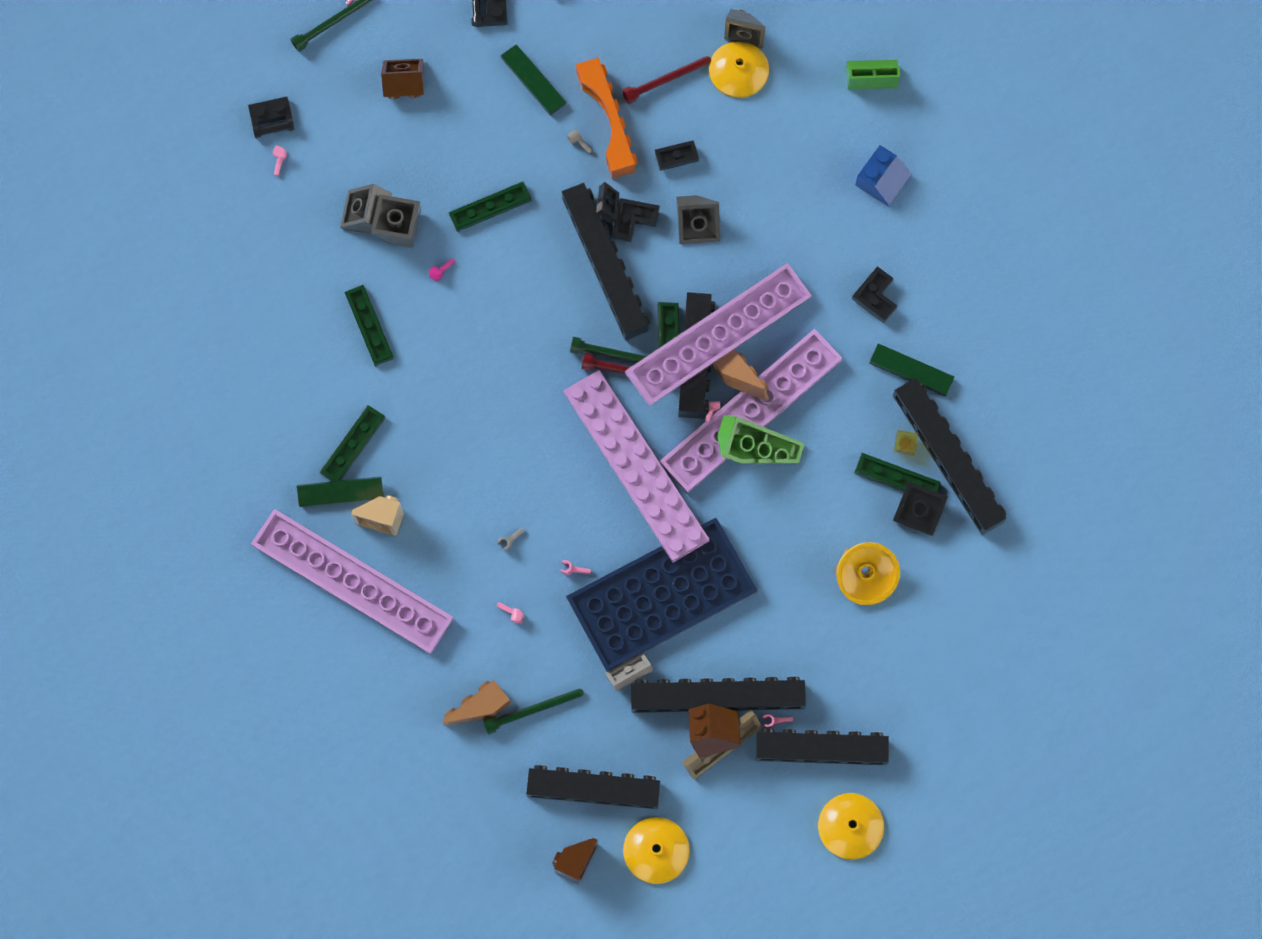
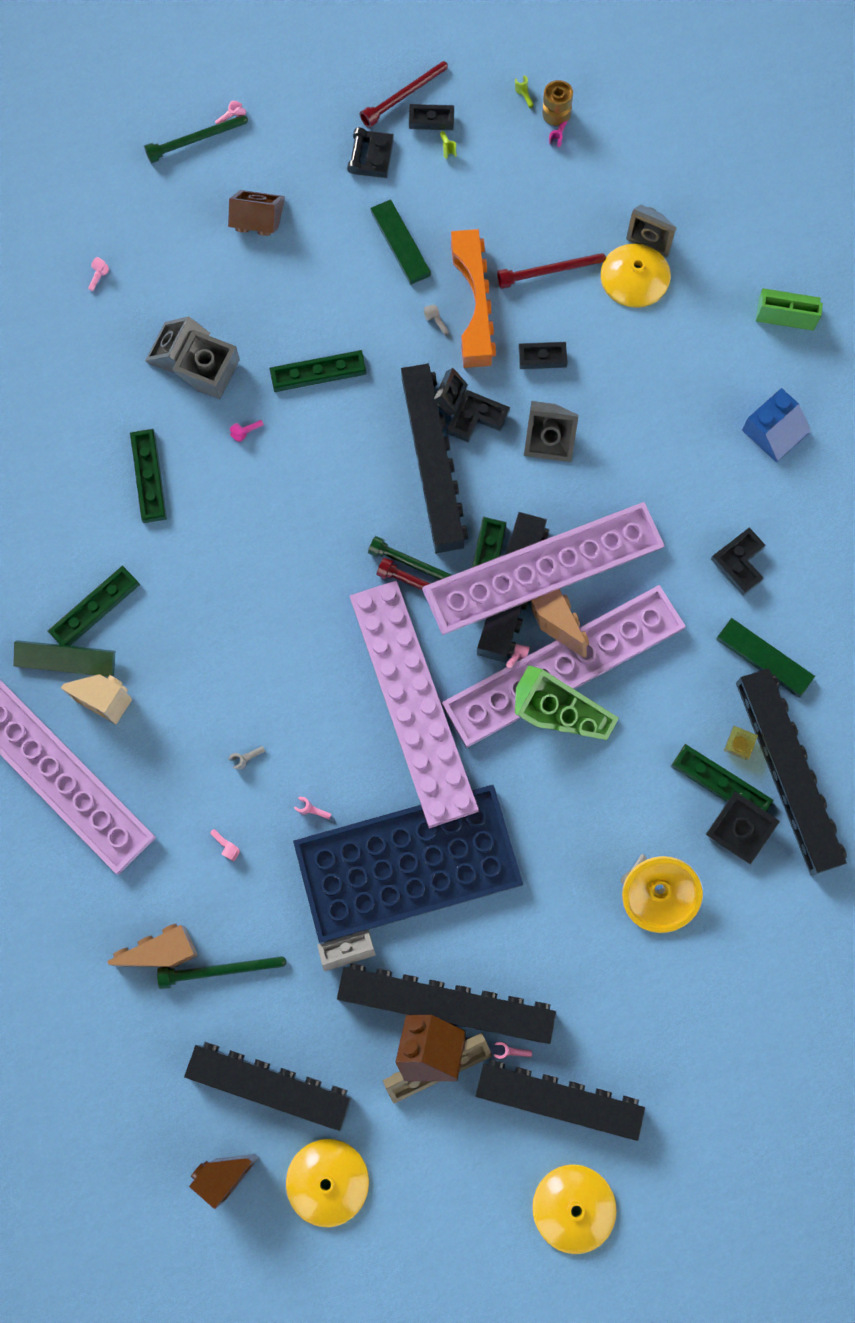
camera: 15 degrees right, 0 degrees up
(268, 112) = (101, 221): black plate -> none

